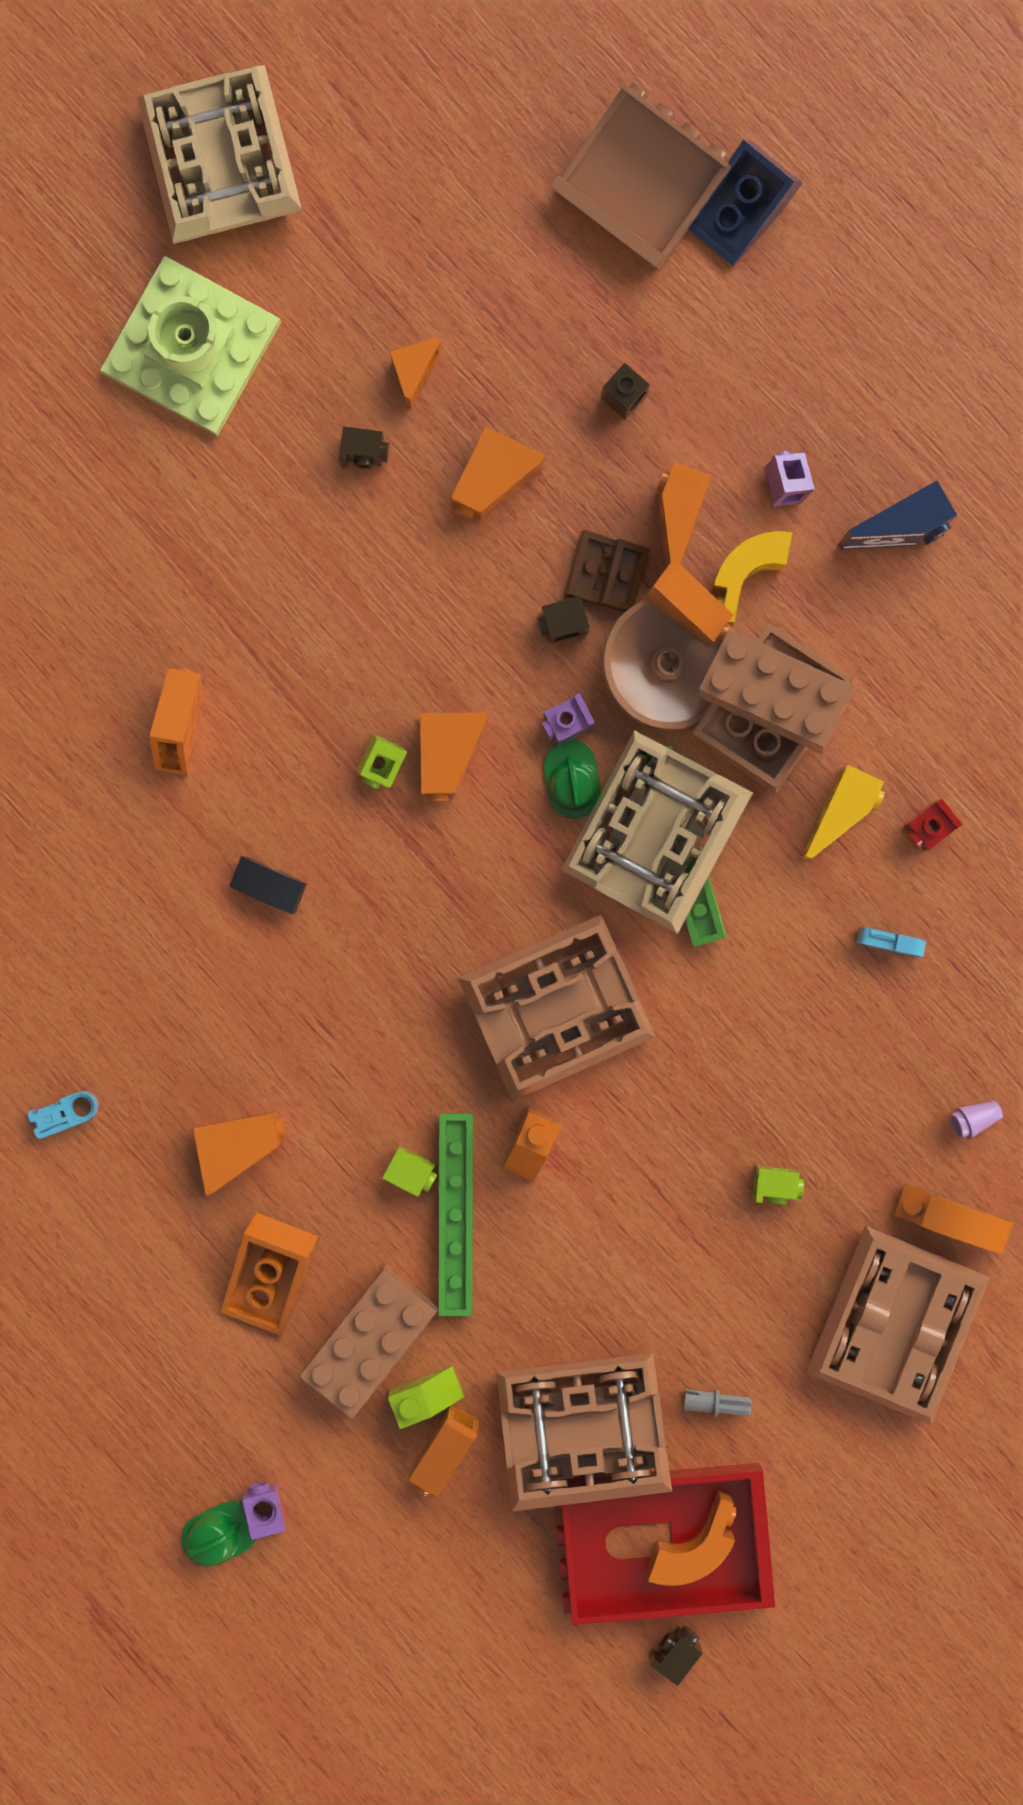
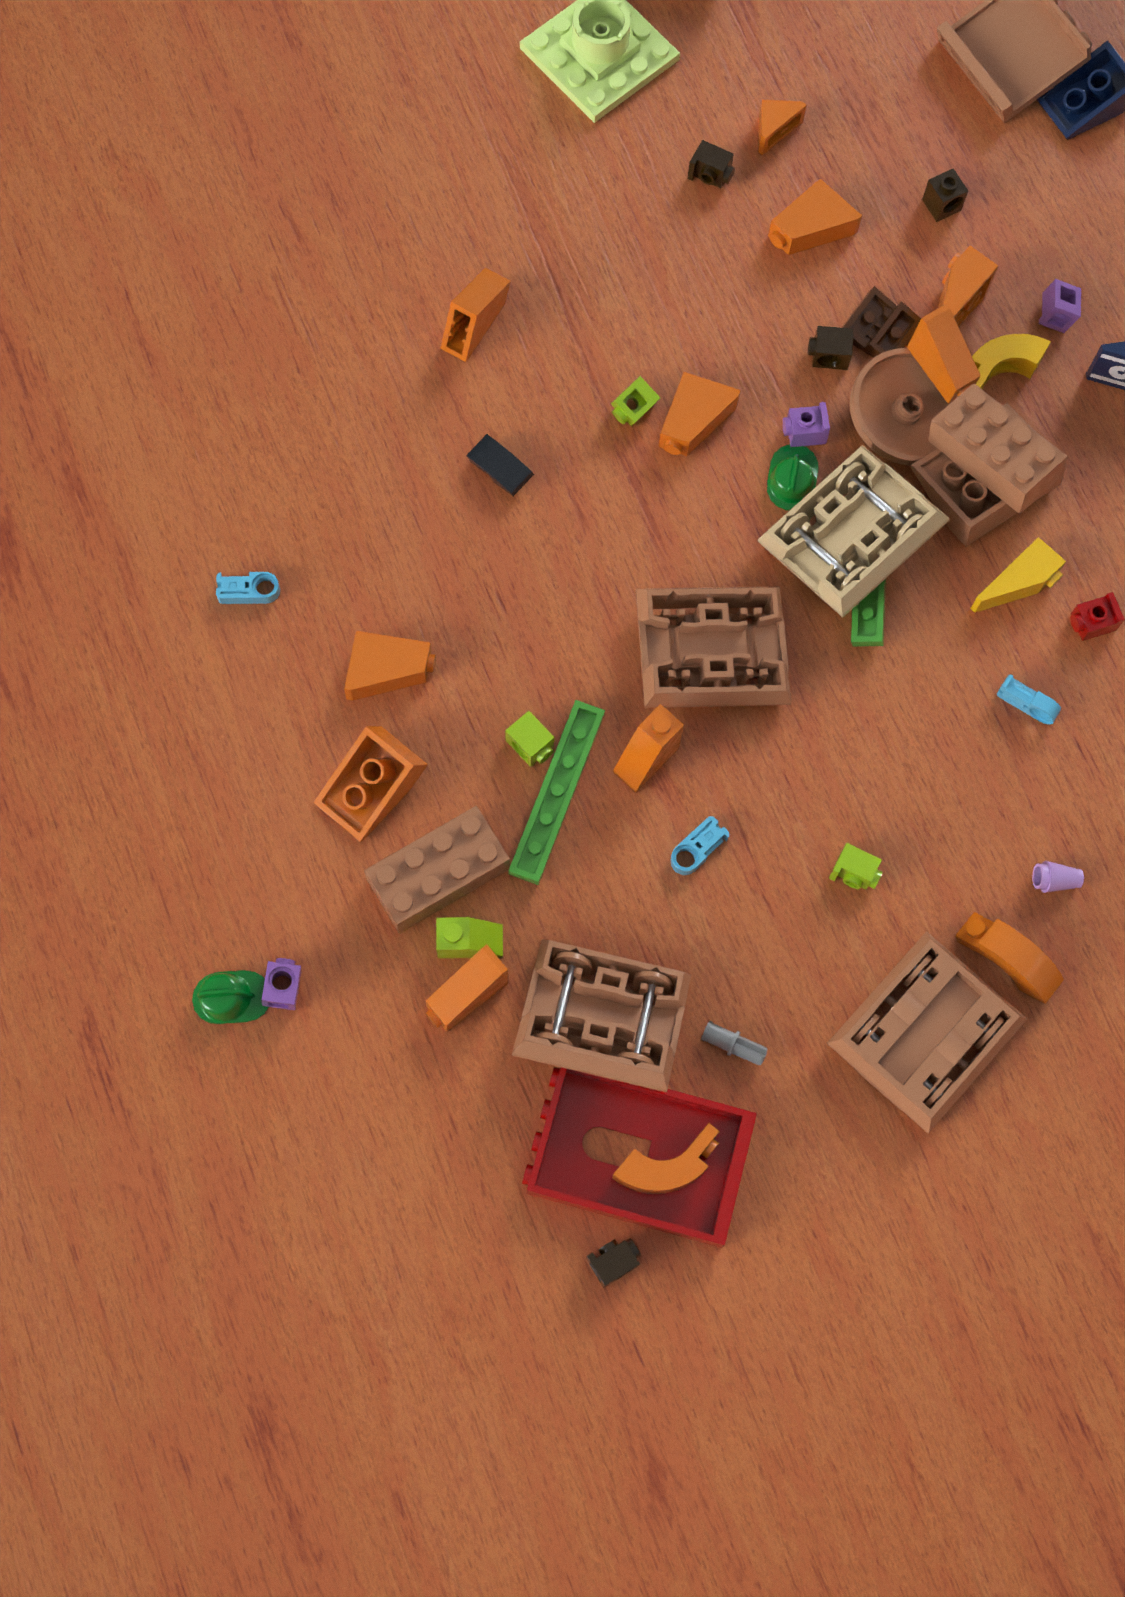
camera: 15 degrees right, 15 degrees down
(614, 1213) = (700, 844): none -> medium azure piece

